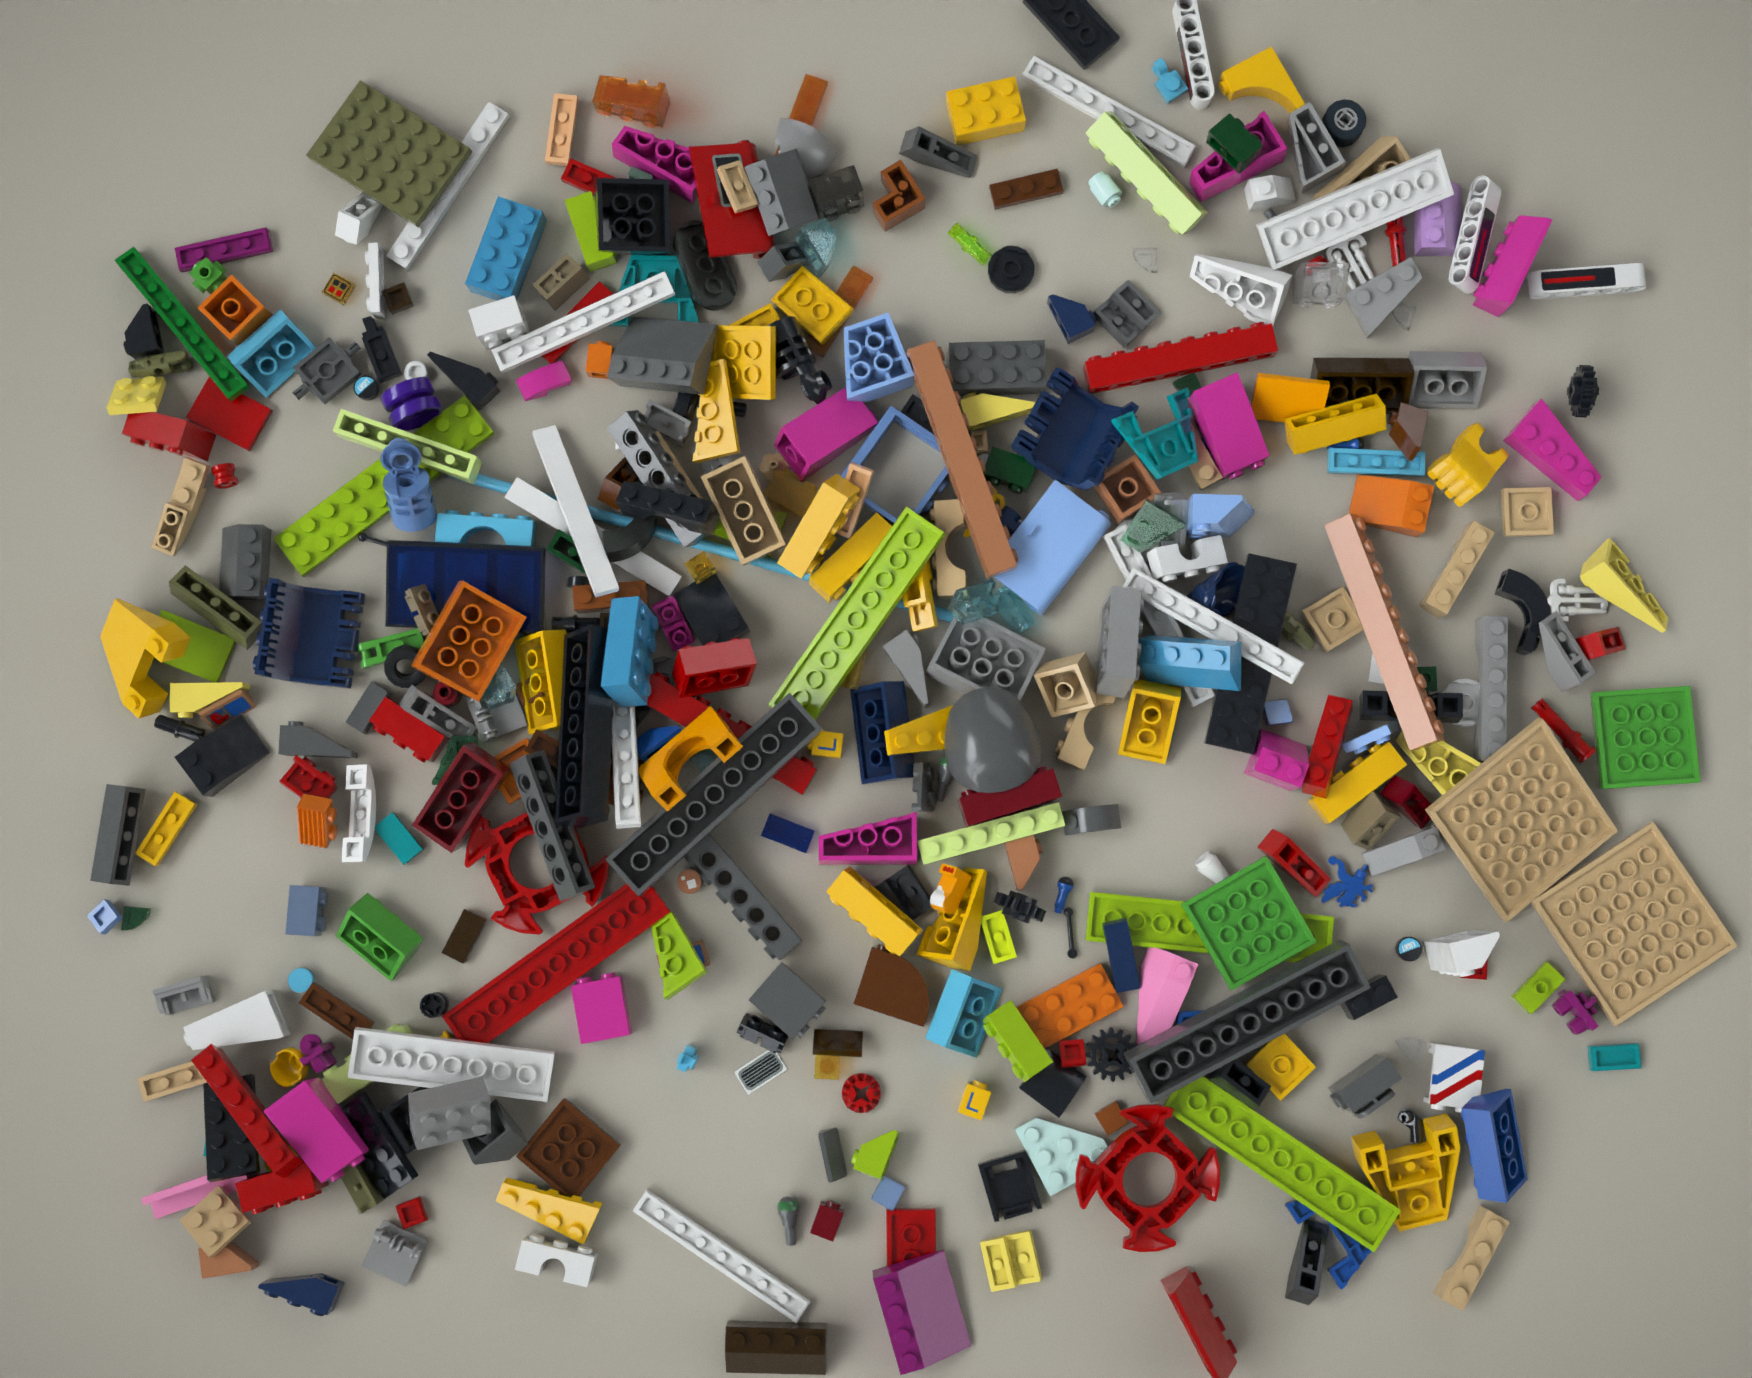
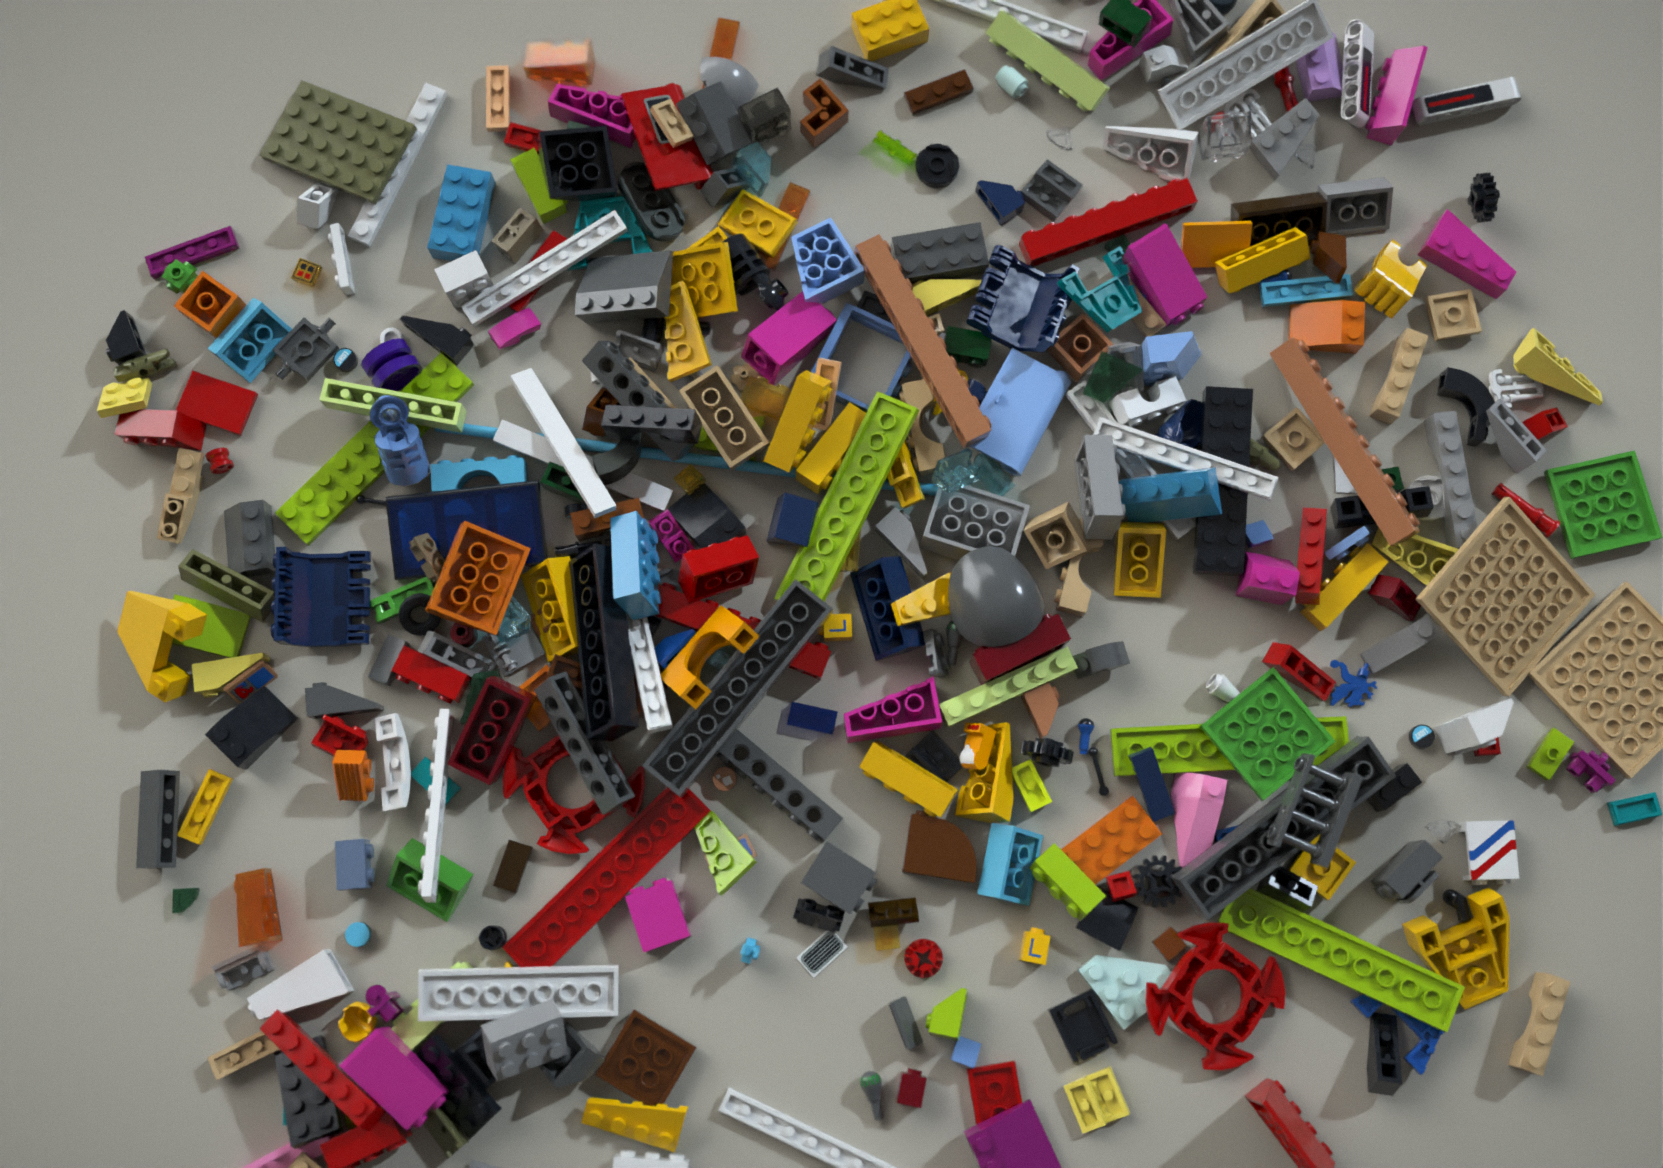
camera: 15 degrees left, 5 degrees down
(104, 916) = (154, 902): medium blue plate -> none
(178, 728) = (205, 707): black axle -> none
(182, 324) = (160, 325): green plate -> none
(204, 939) = (256, 908): none -> clear orange wedge
(334, 1010) = (394, 958): reddish brown plate -> none
(380, 351) = (354, 324): black hinge -> none
(393, 873) = (435, 814): none -> white plate
(398, 298) = (364, 272): dark brown plate -> none
(411, 1212) = (499, 1148): red tile -> none
(599, 359) = (564, 301): orange brick -> none
(798, 627) = (792, 521): none -> dark blue slope
(1290, 1032) = (1338, 810): none -> dark grey fence
(1369, 821) = (1363, 620): dark tan panel -> none
(1494, 1145) = (1540, 910): blue slope -> none

